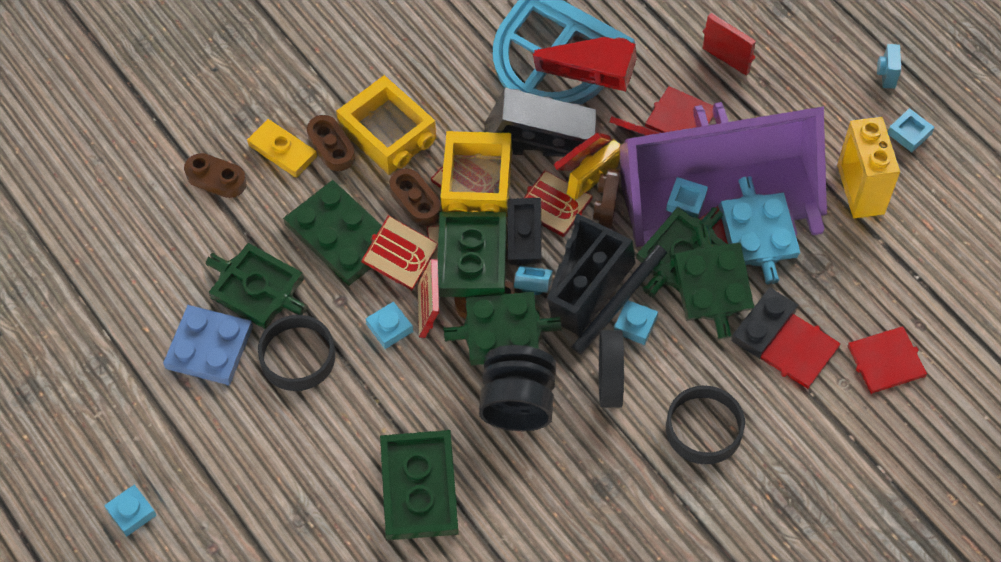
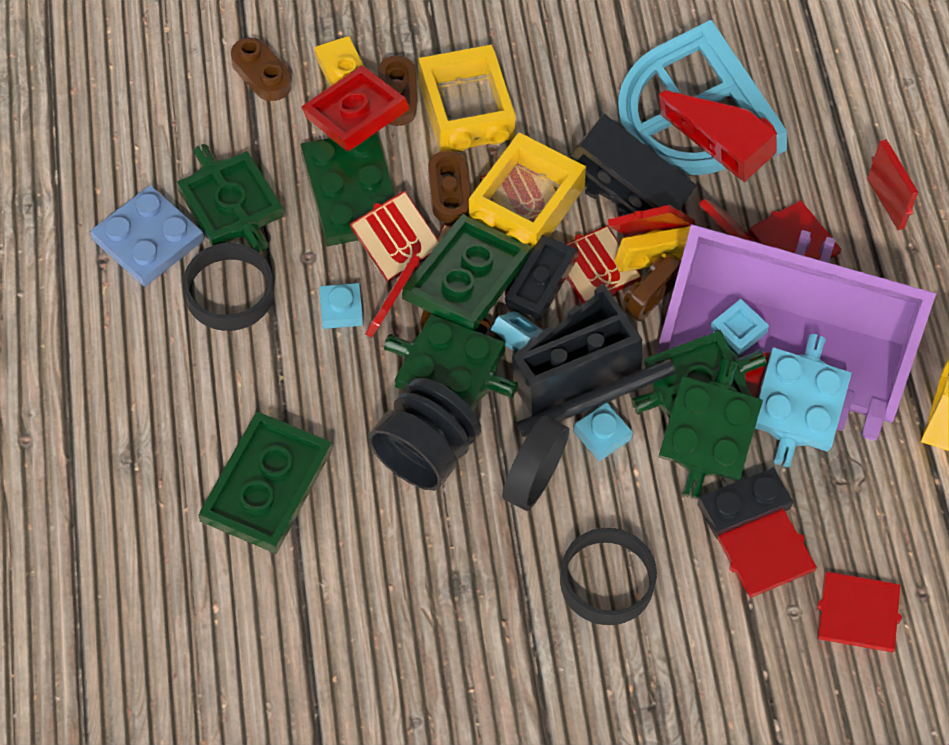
camera: 25 degrees right, 0 degrees up
(312, 170) = (355, 108): none -> red plate

